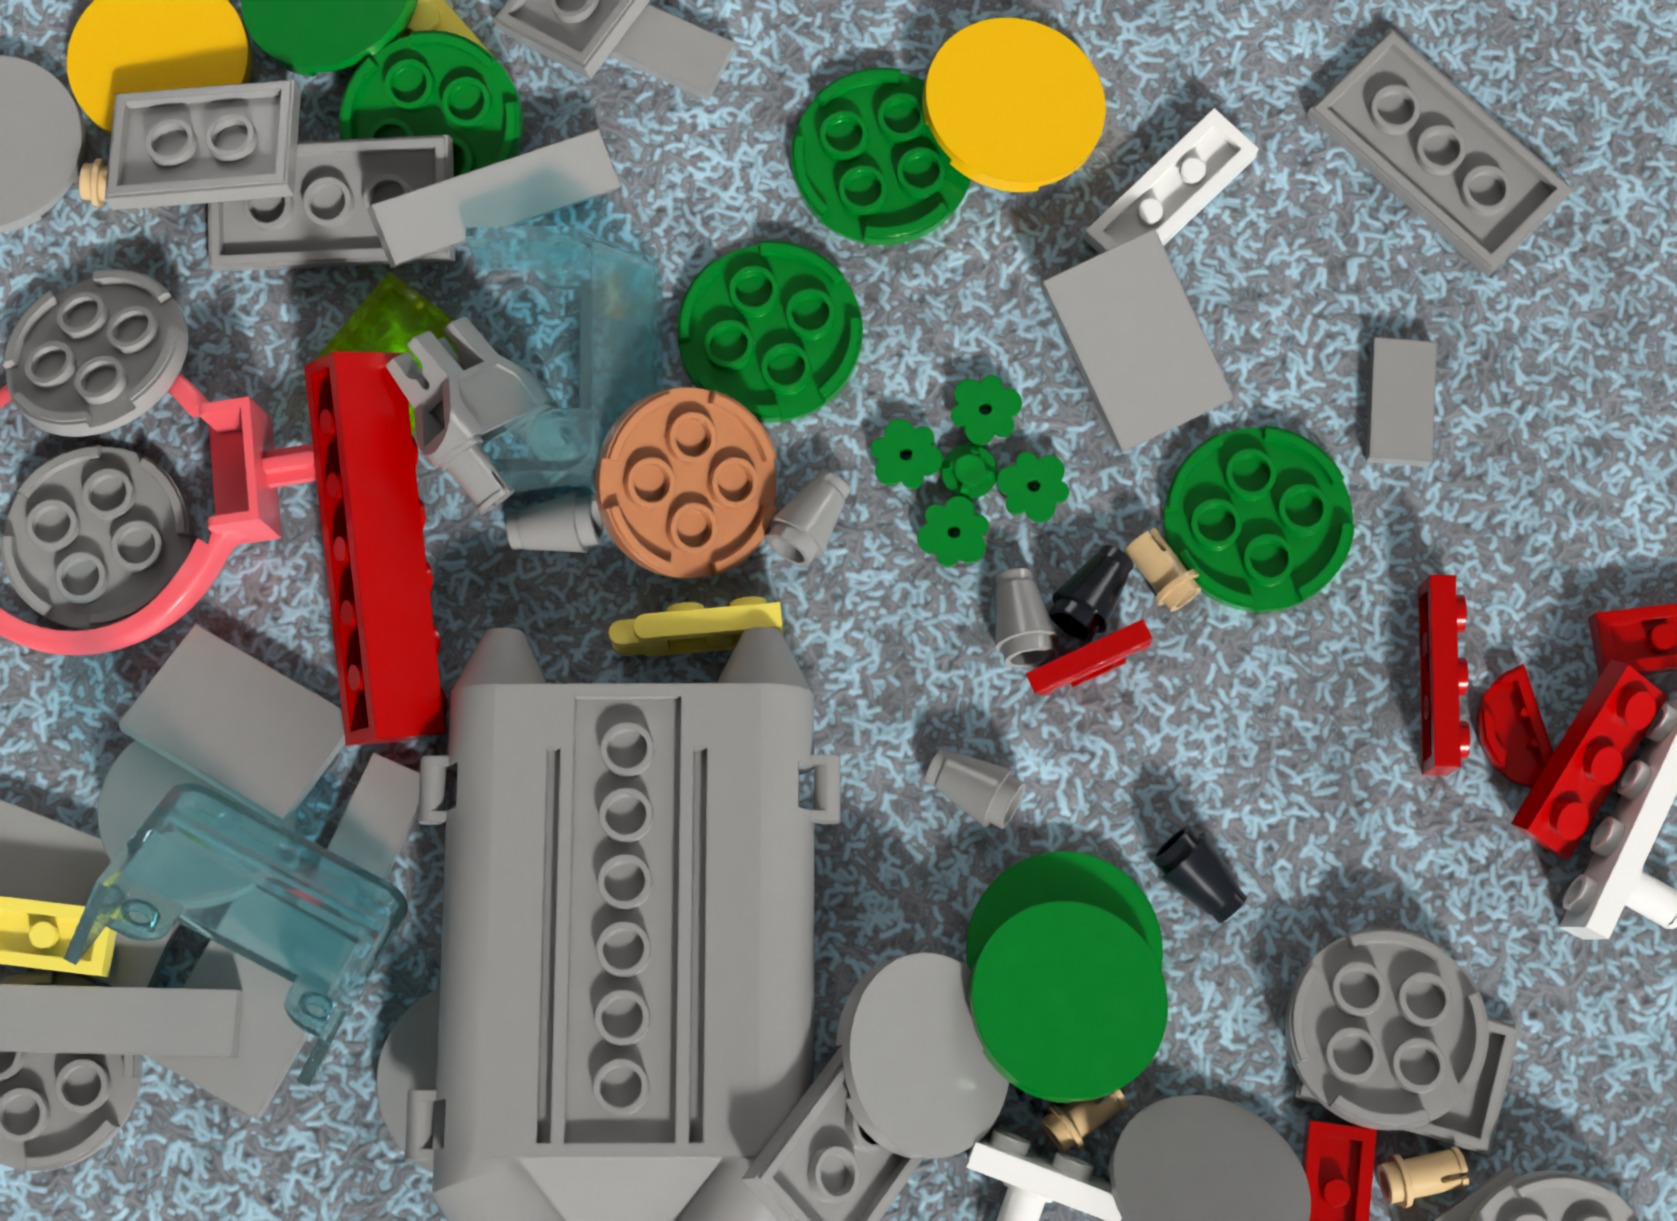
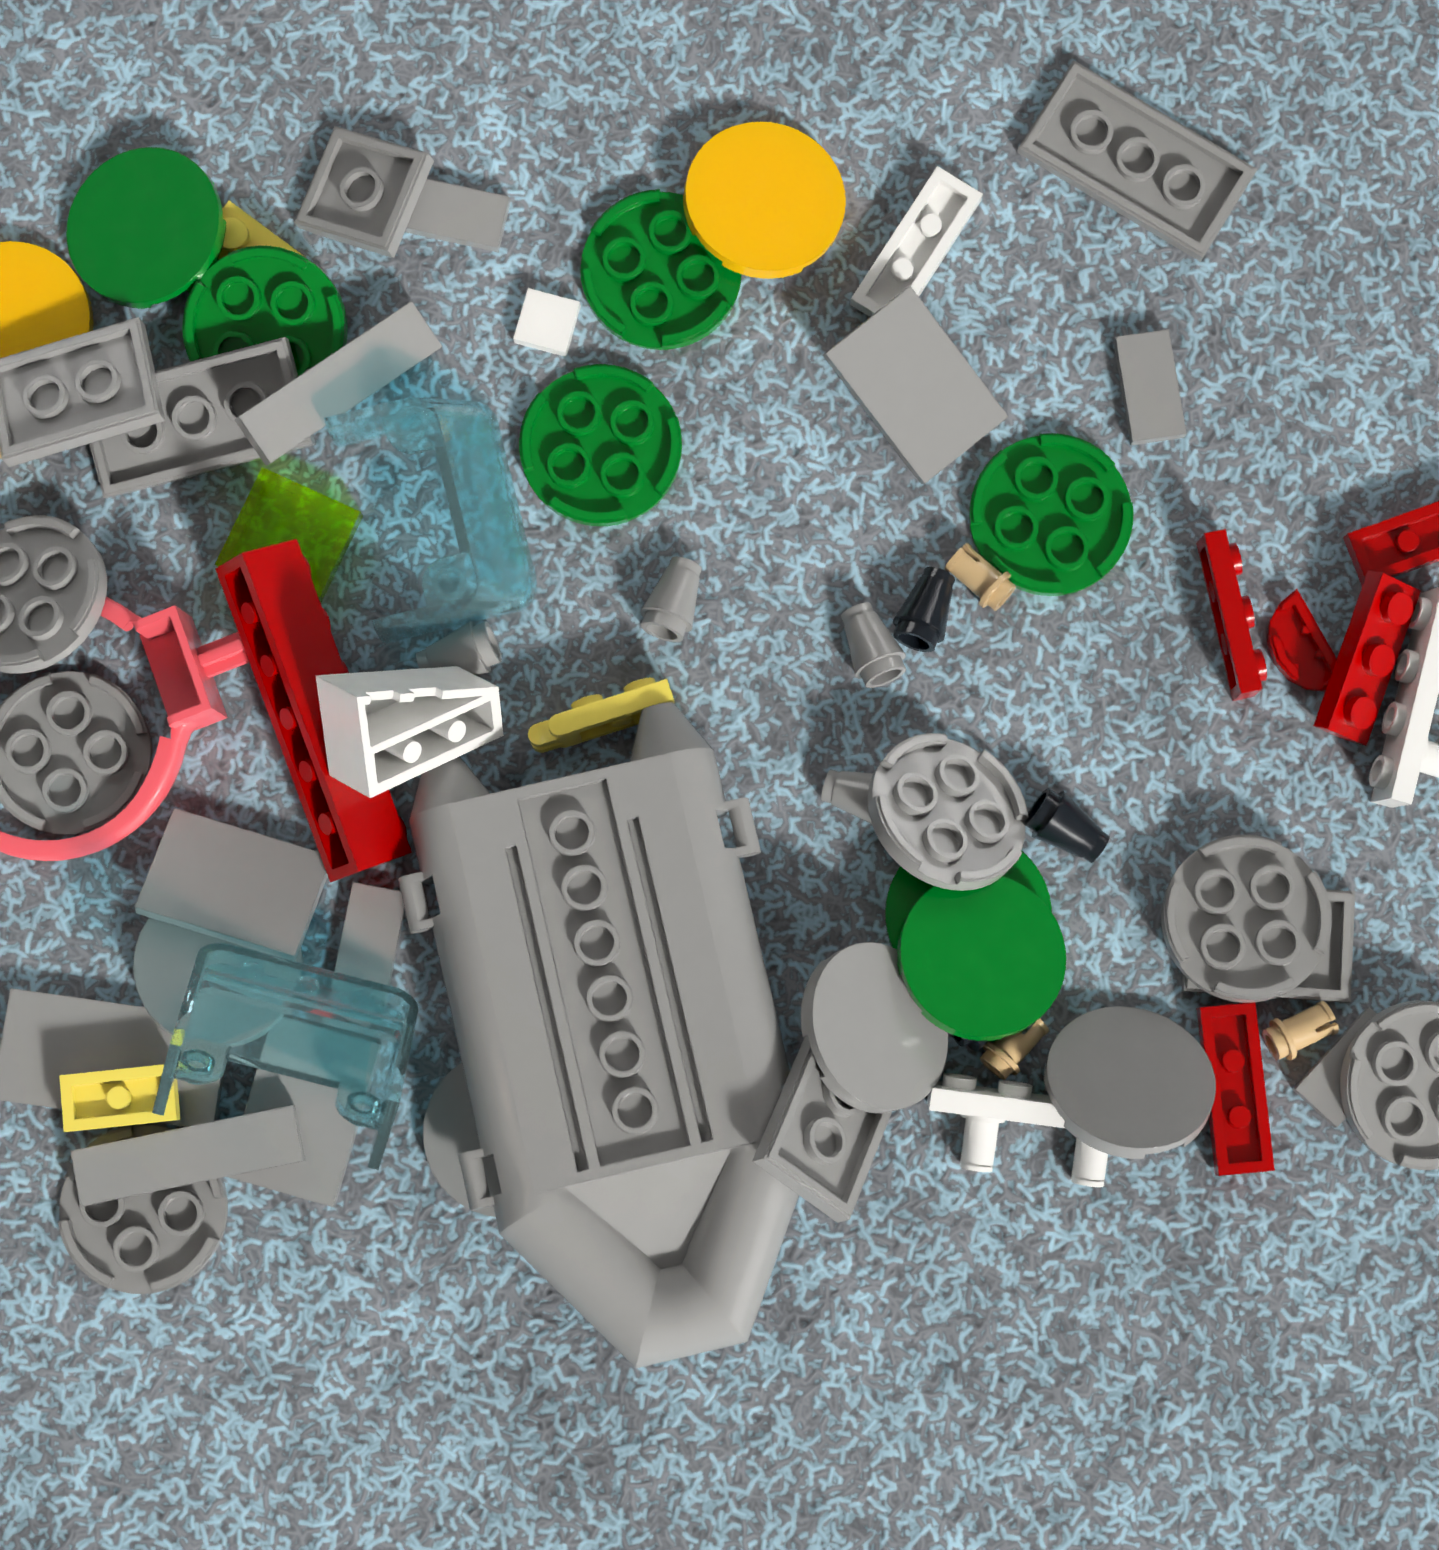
camera: 15 degrees left, 5 degrees up
(466, 404) = (361, 569): light grey connector -> none
(467, 581) = (403, 722): none -> white wedge
(686, 483) = (563, 594): nougat tile -> none
(742, 185) = (547, 322): none -> white tile
(969, 471) = (798, 528): green plant -> none
(1065, 826) = (947, 812): none -> light grey tile
(1091, 659) = (937, 668): red tile -> none

